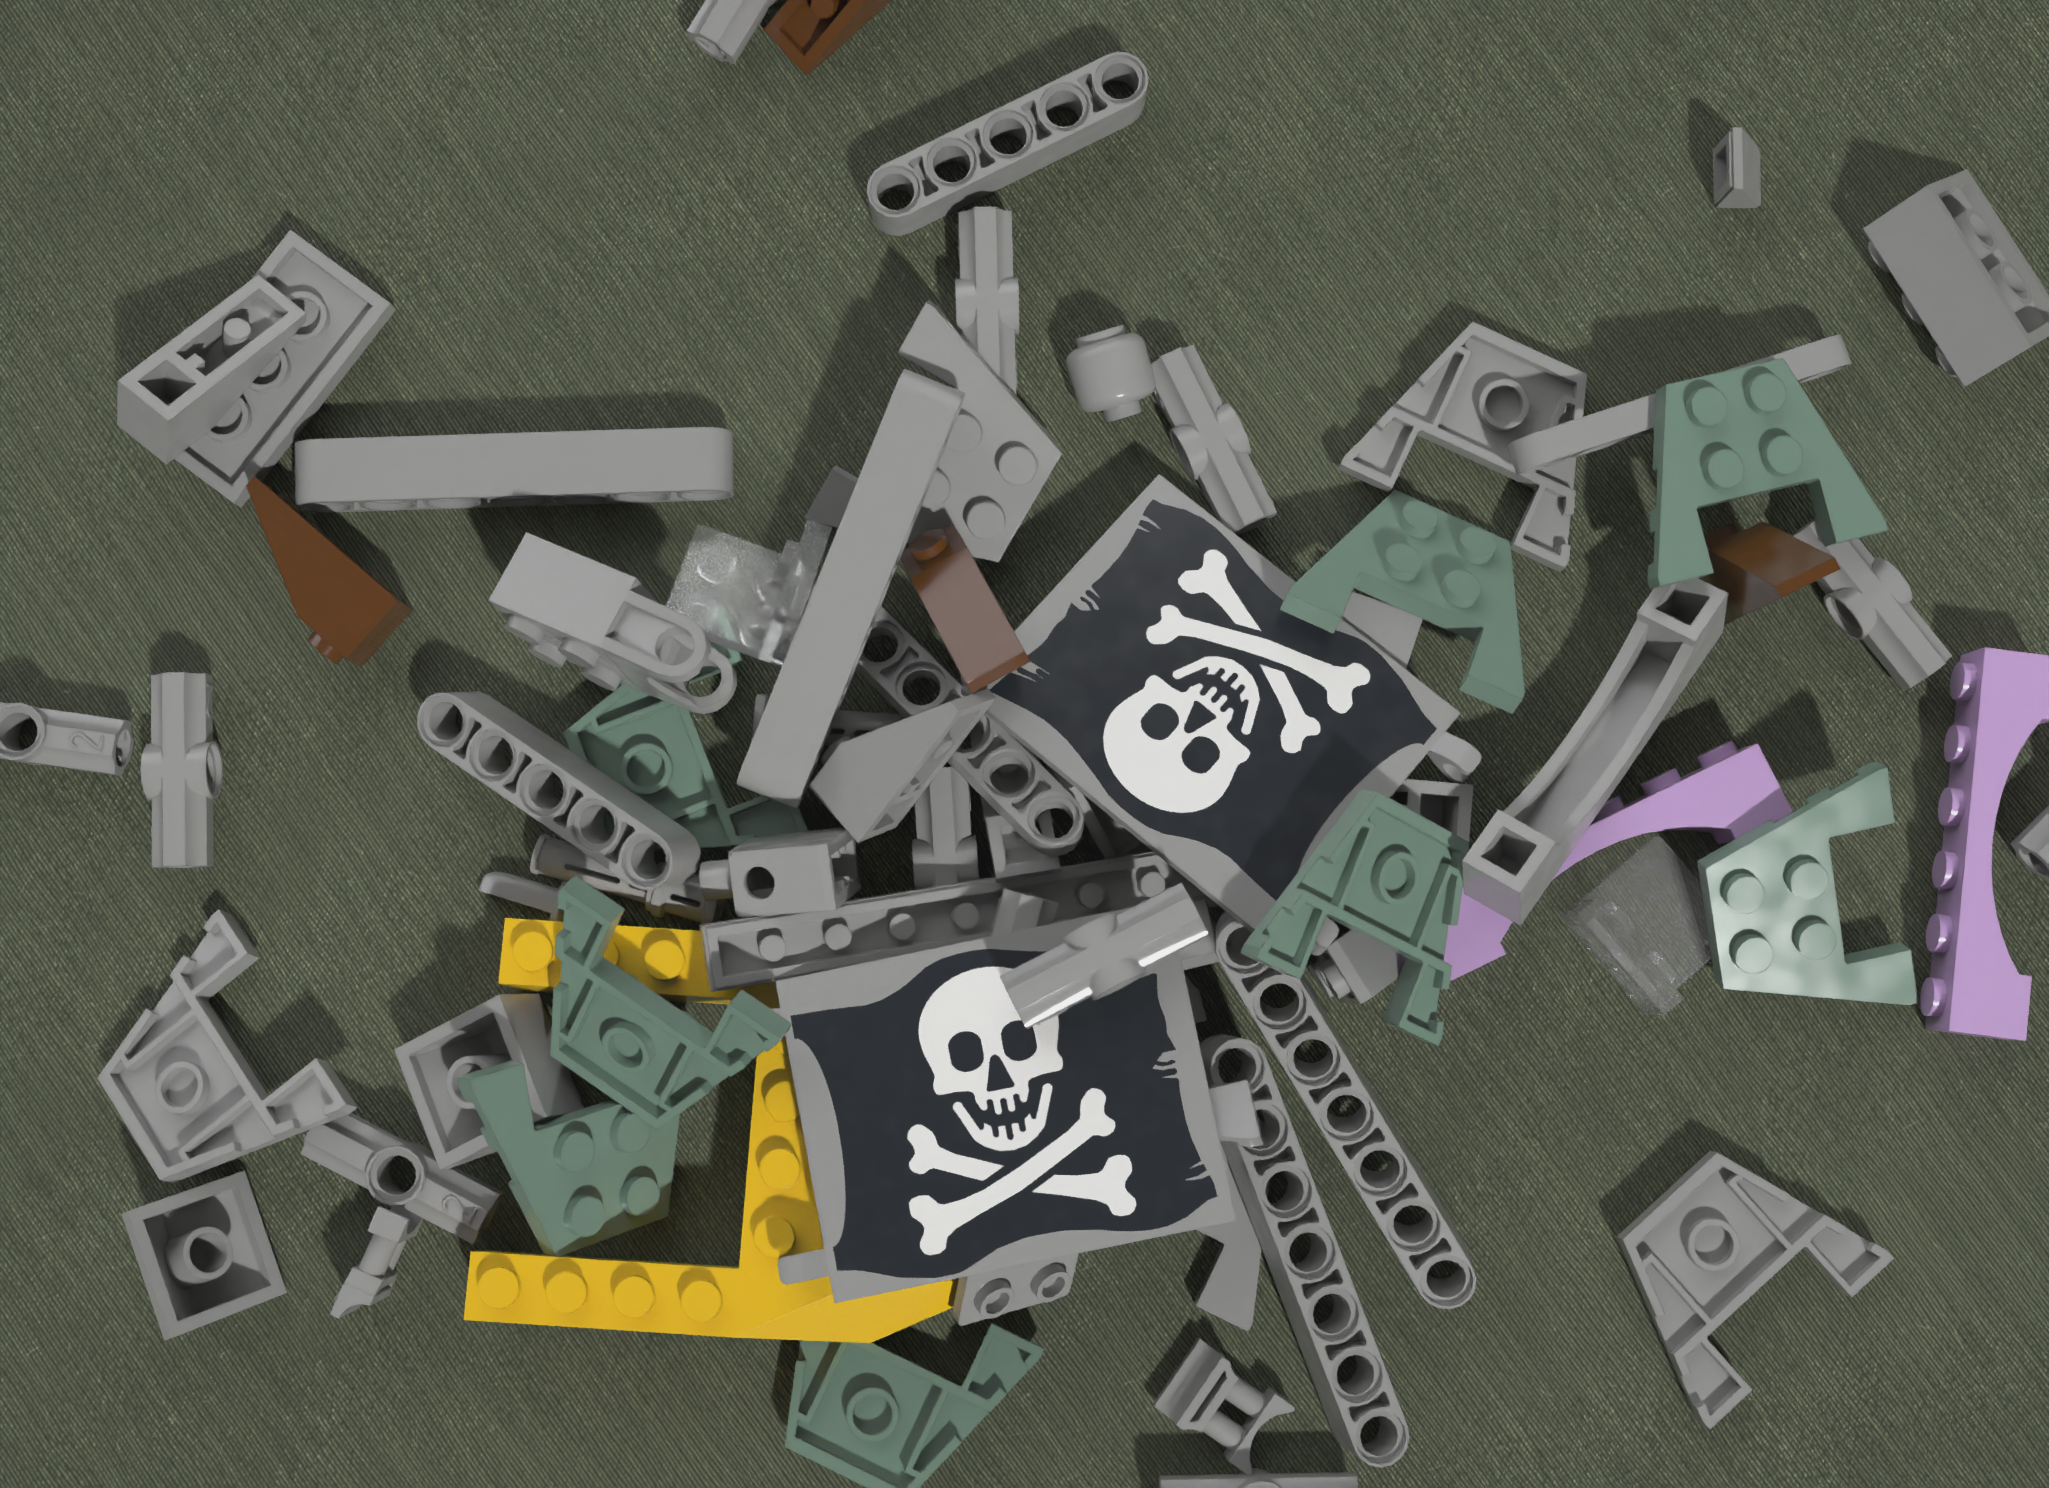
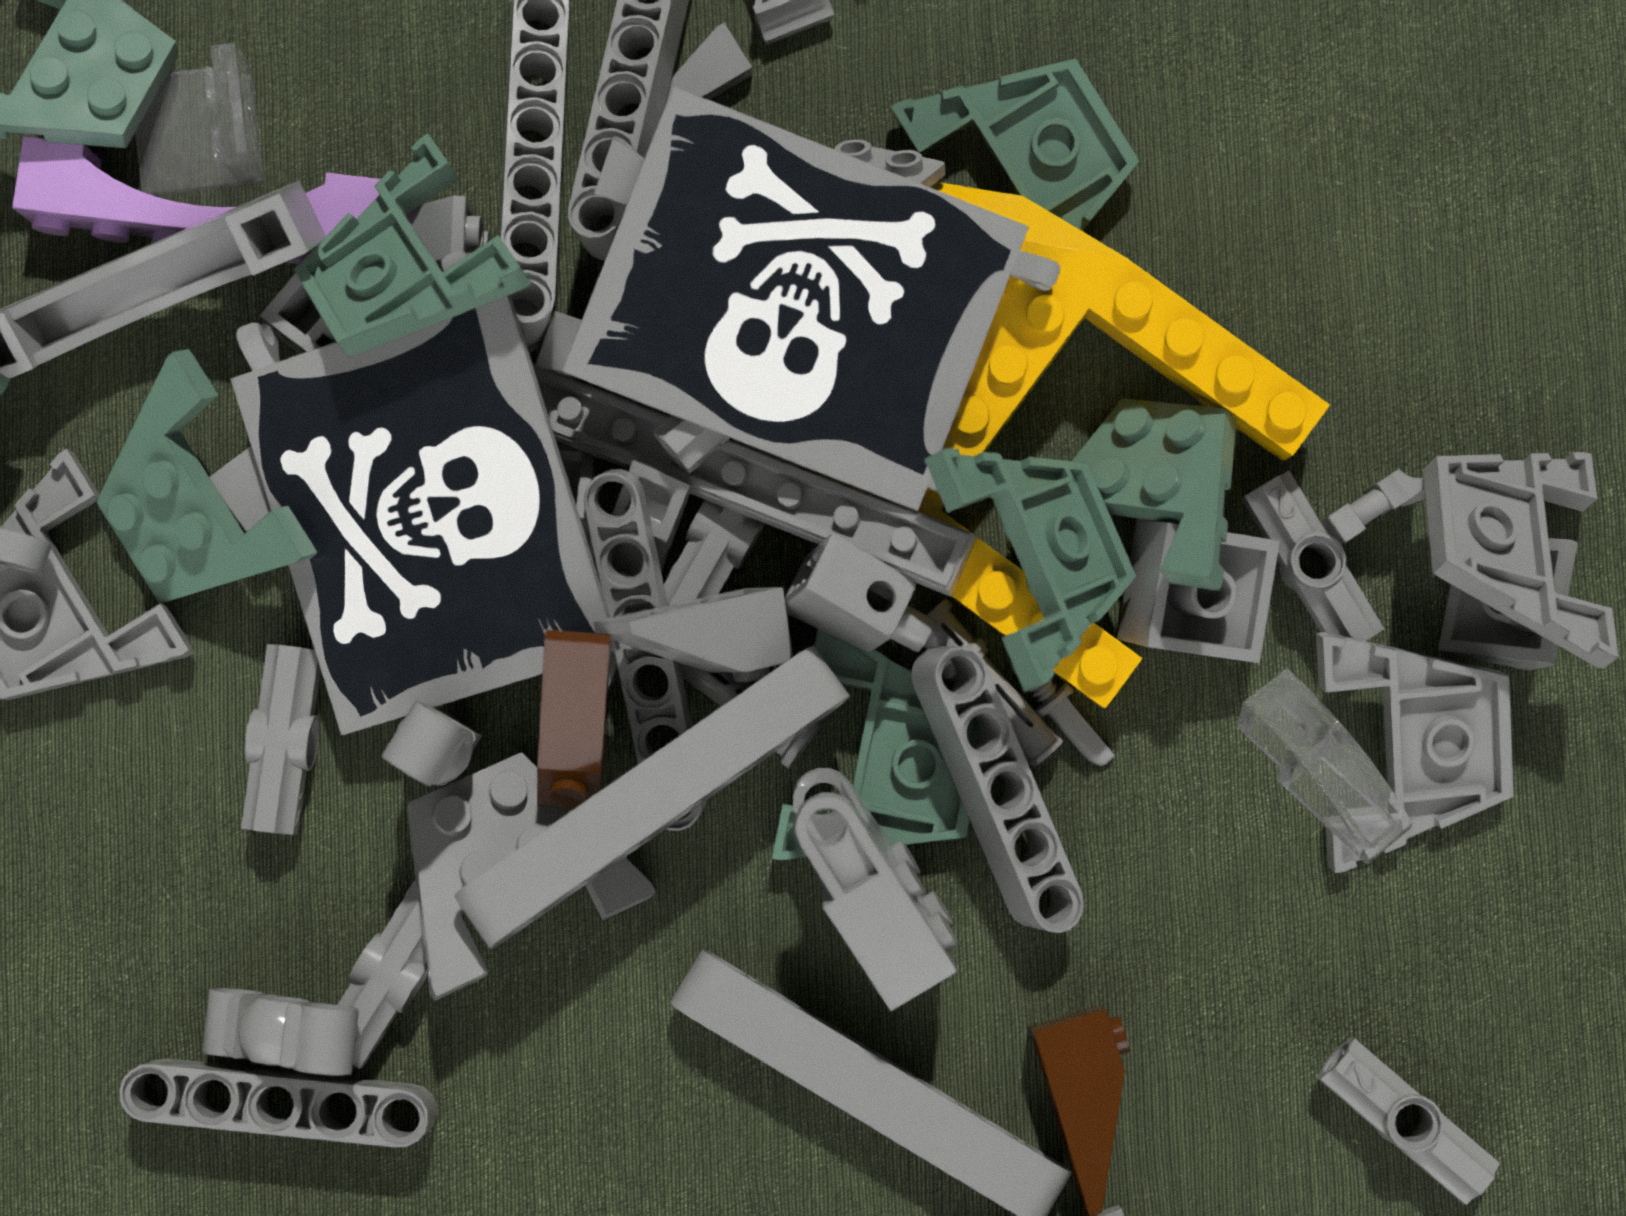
camera: 140 degrees left, 0 degrees up
(182, 770) = (1298, 1007): light grey piece -> none
(239, 1291) = (1495, 542): none -> light grey wing
(281, 994) = (1323, 765): none -> clear slope
(747, 592) = (740, 853): clear bracket -> none
(1043, 197) = (280, 1031): none -> light grey piece
(1070, 508) = (431, 745): none -> light grey piece
(1104, 955) = (640, 354): light grey piece -> none
(1111, 372) = (324, 849): light grey head -> none

